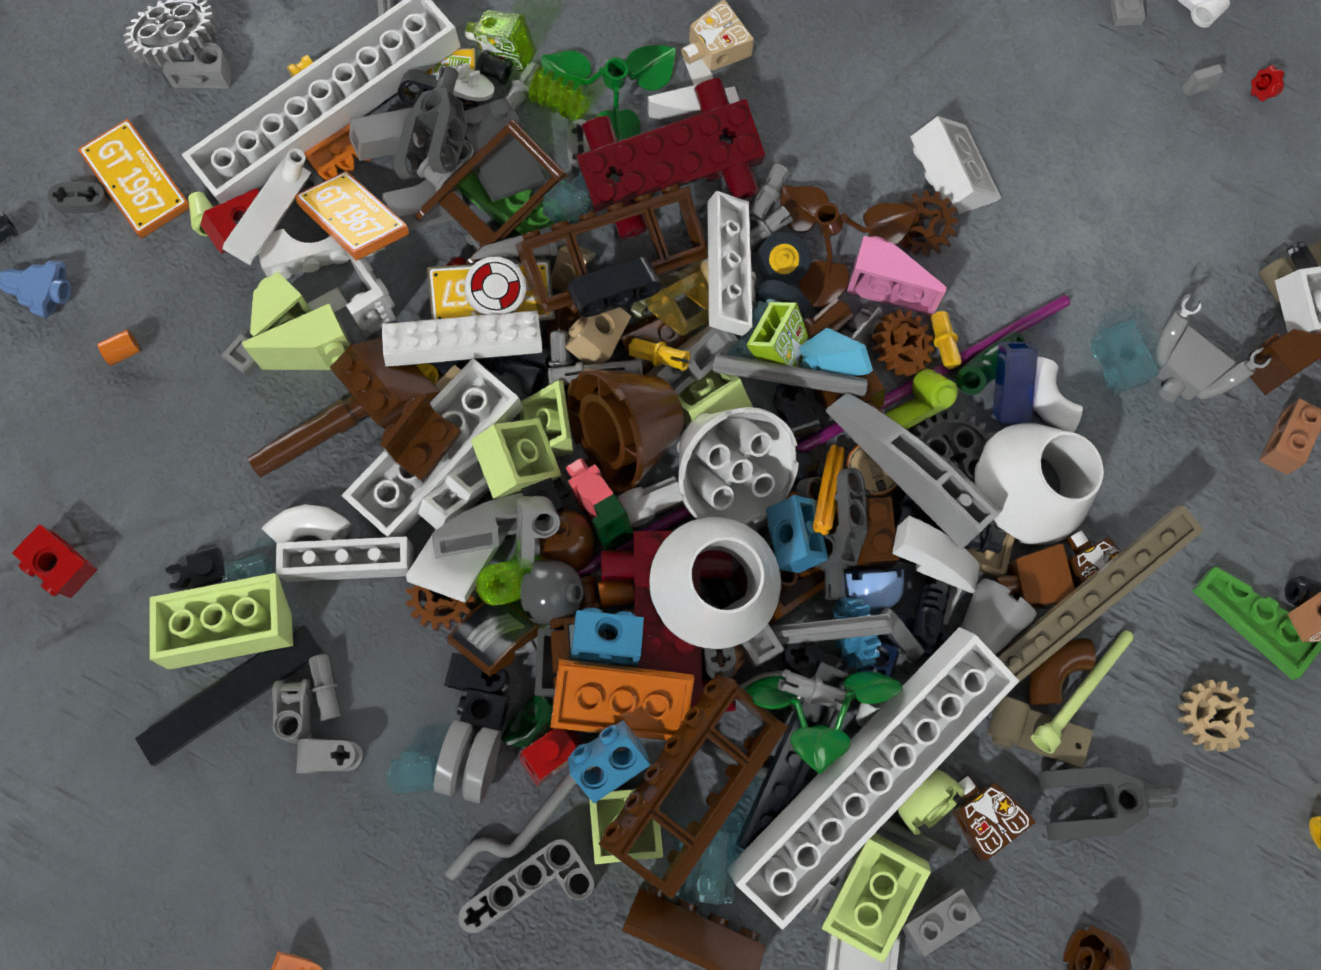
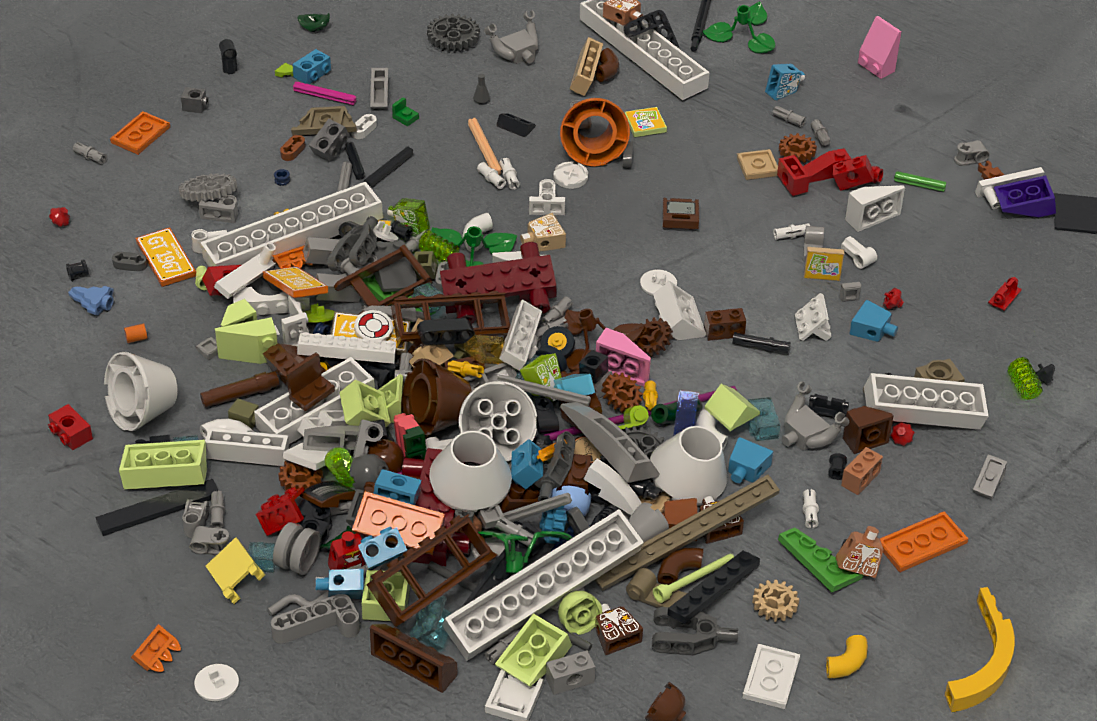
camera: 10 degrees right, 30 degrees down
(149, 484) = (138, 390): none -> white cone
(190, 133) = (201, 235): none -> white piece
(325, 487) = (243, 412): none -> olive brick
(375, 812) = (231, 567): none -> light yellow flag
(400, 263) = (319, 314): none -> lime piece
(413, 294) = (322, 329): none -> dark blue bush
(421, 681) = (280, 511): none -> red bracket
(549, 134) = (428, 262): none -> olive brick
(556, 824) = (350, 580): none -> dark azure torso
(610, 41) = (482, 221): none -> white cylinder
(858, 300) = (594, 364): none -> black brick
(907, 105) = (655, 279): none -> white piece
(1030, 177) = (723, 323): none -> reddish brown brick
(1082, 357) = (730, 407): none -> yellowish green slope
(1100, 204) = (760, 342): none -> black pin
(1121, 444) = (749, 461): none -> dark azure torso
(1121, 714) = (713, 587): none -> black plate
(1159, 35) = (823, 263): none -> tile
(1161, 146) = (813, 319): none -> white bracket
(1218, 315) = (822, 406): none -> black hinge
(1227, 519) = (810, 508): none -> white pin
(1234, 858) = (771, 676): none -> white tile
(1248, 136) = (872, 322): none -> dark azure torso
(1252, 431) = (837, 467): none -> black bush

